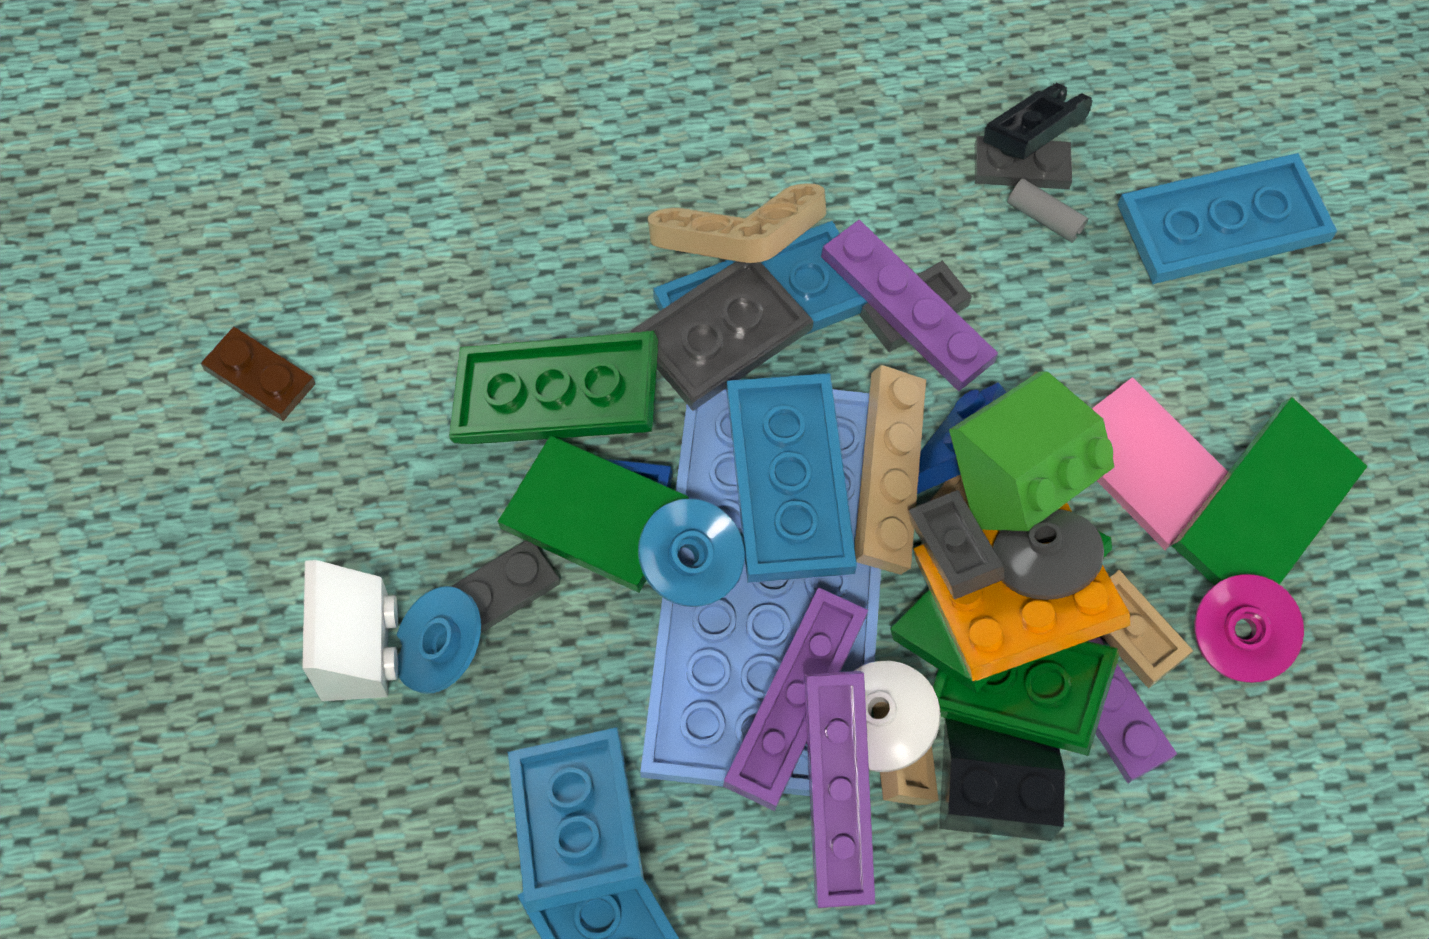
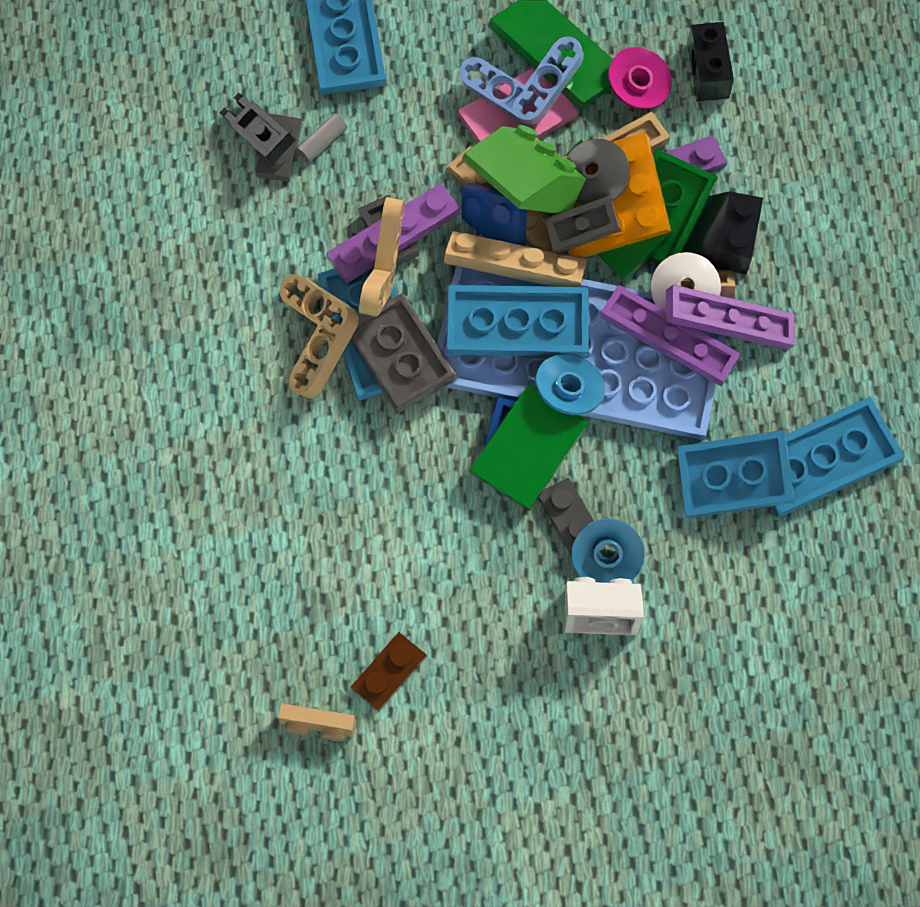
camera: 80 degrees left, 5 degrees up
(184, 279) = (332, 724): none -> tan plate
(555, 388) = (431, 466): green tile -> none
(837, 287) = (380, 282): none -> tan beam
(1175, 452) = (523, 94): none -> light blue beam
(1307, 734) = (710, 61): none -> black brick

